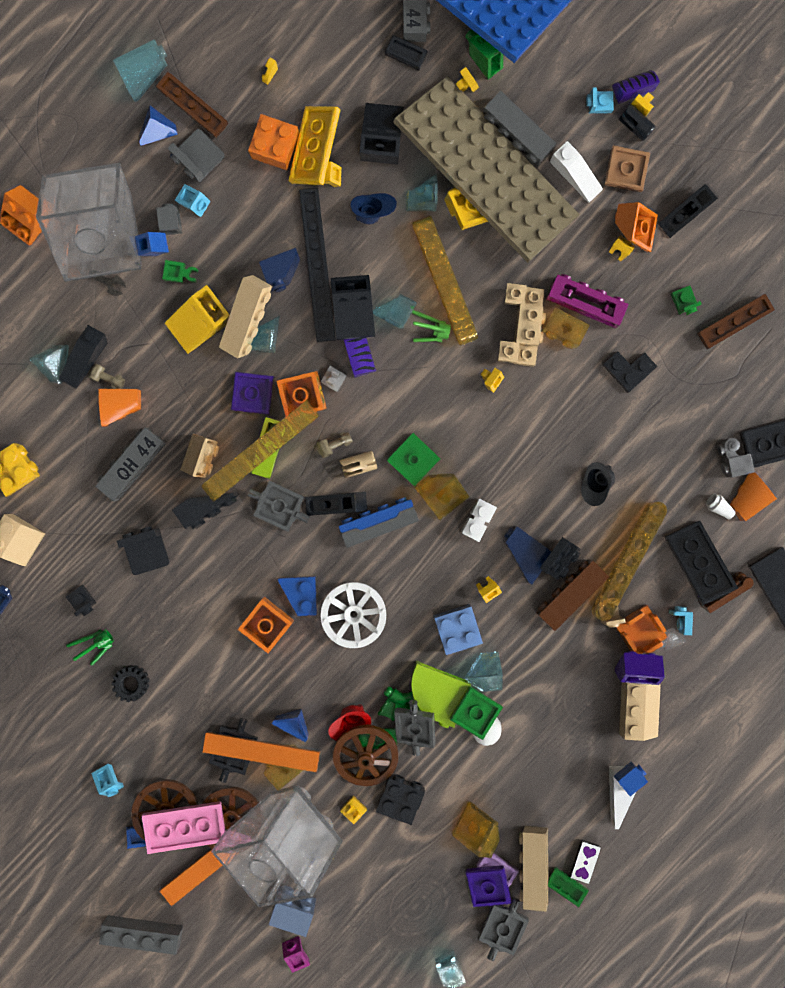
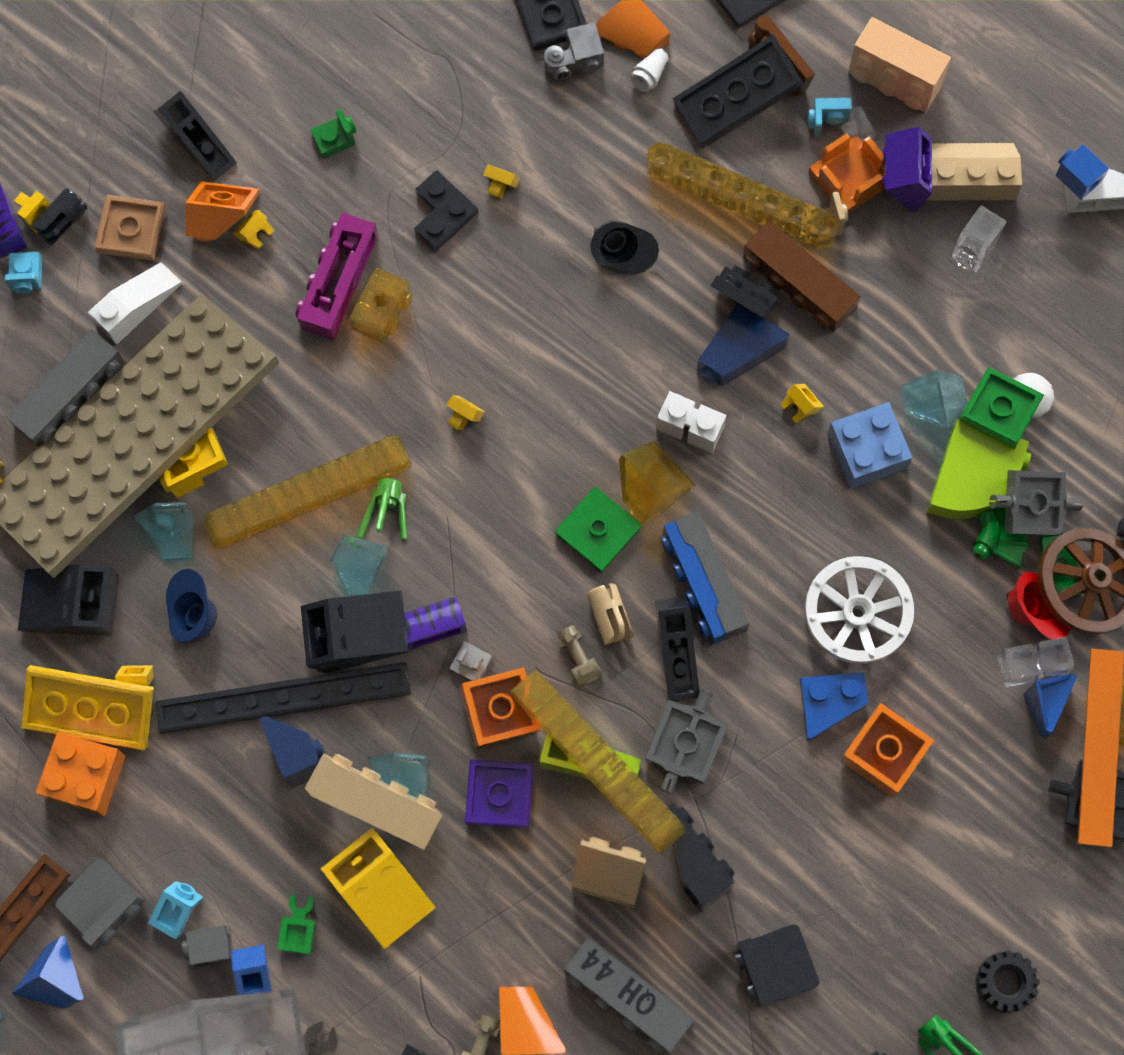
camera: 90 degrees left, 15 degrees down
(316, 726) = (1048, 660): none -> clear piece
(528, 325) = (377, 362): tan bracket -> none
(589, 708) = (978, 239): none -> clear piece
(647, 406) = (500, 179): none -> yellow tile
(713, 667) = (898, 65): none -> light nougat brick
(736, 321) = (365, 62): reddish brown plate -> none

